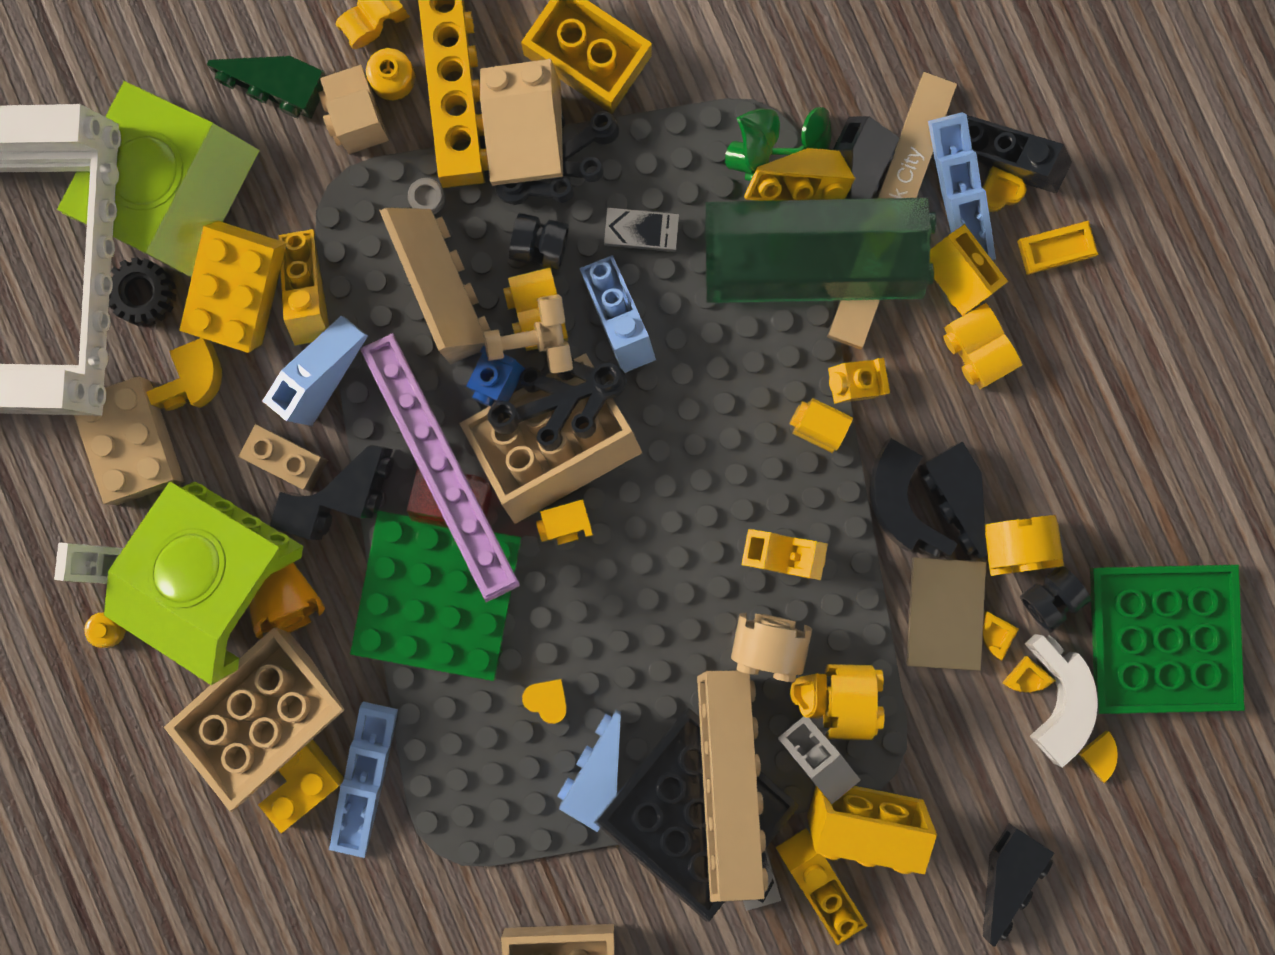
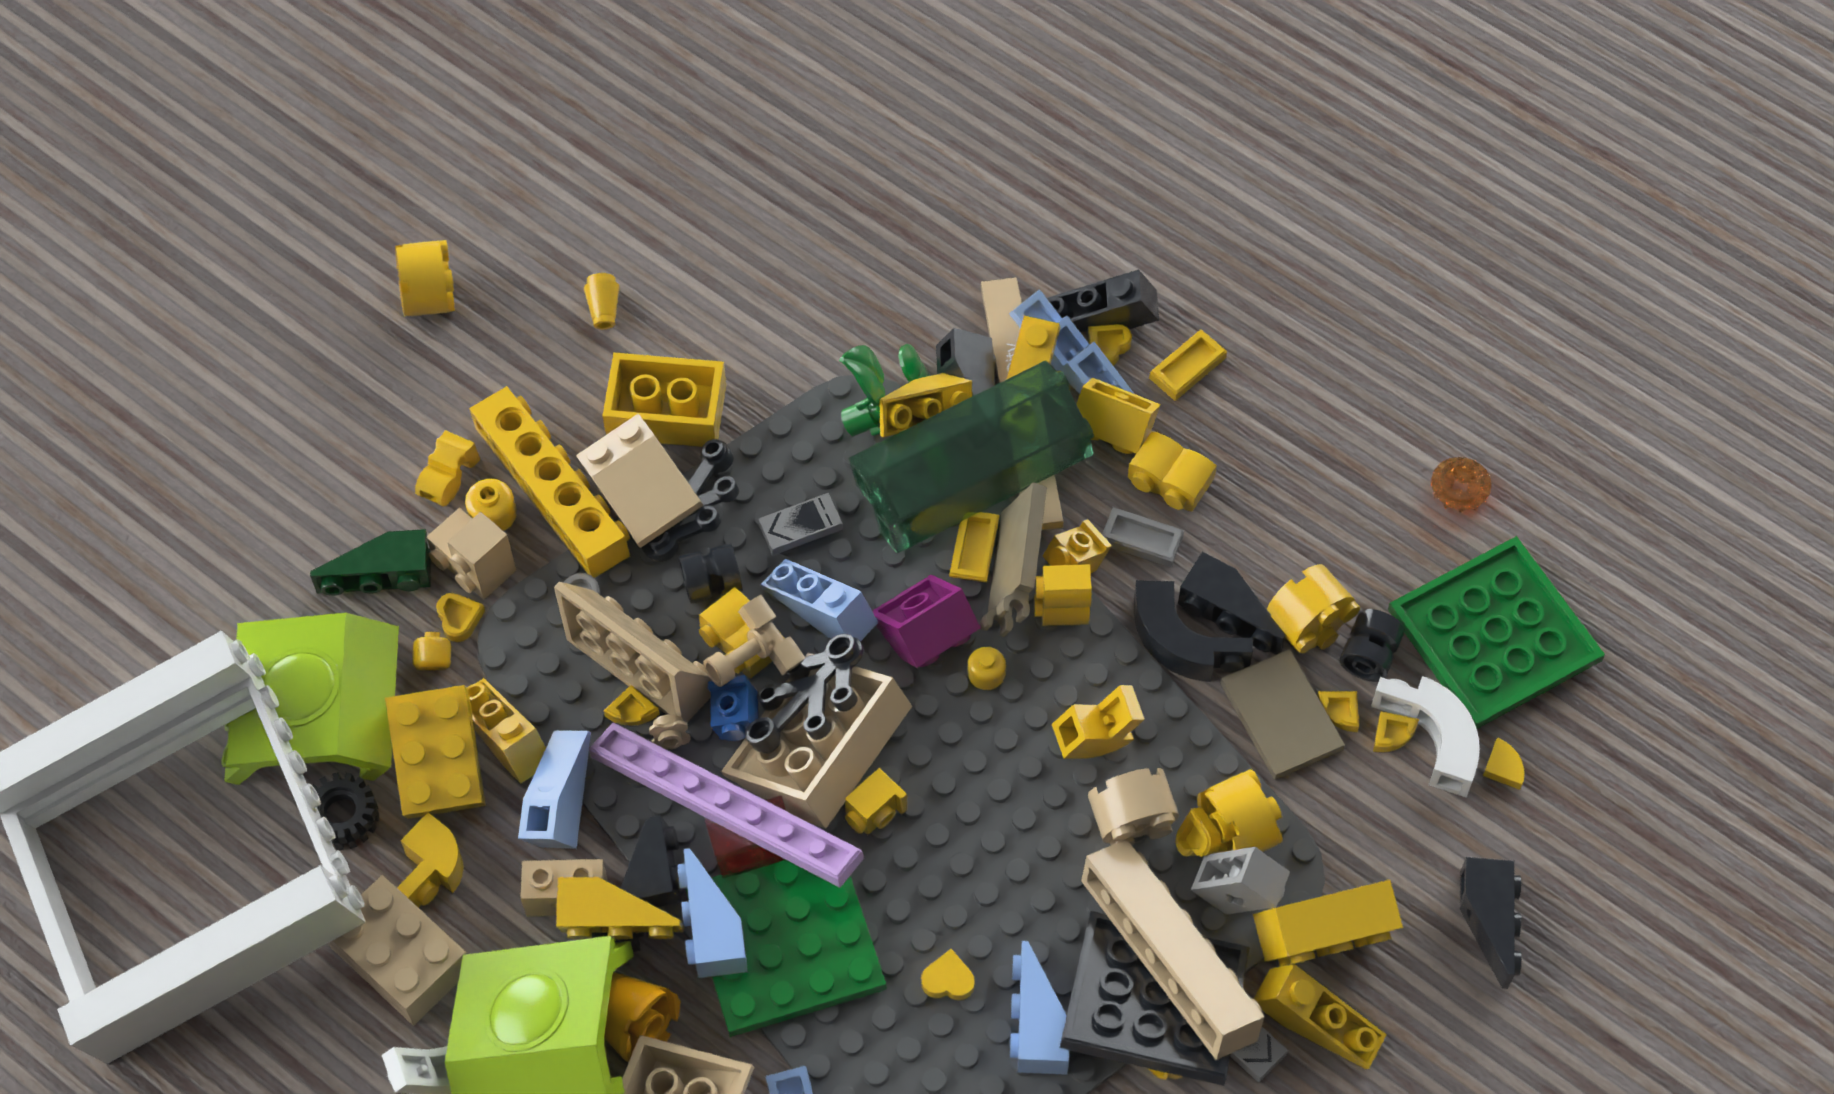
camera: 25 degrees left, 25 degrees down
(280, 184) = (431, 652): none -> yellow piece
(293, 506) = (598, 906): none -> yellow slope
(319, 160) = (459, 616): none -> yellow tile
(376, 571) = (716, 927): none -> light blue slope
(413, 327) = (631, 708): none -> yellow tile
(432, 368) = (669, 731): none -> tan plate
(695, 378) = (926, 620): none -> magenta slope
(724, 447) = (986, 668): none -> yellow piece
(775, 331) = (974, 547): none -> yellow tile
(799, 369) = (1016, 559): none -> dark tan tile
(923, 390) = (1143, 537): none -> light grey tile
(926, 173) = (1034, 344): none -> yellow plate
(1232, 475) = (1465, 471): none -> clear orange gear

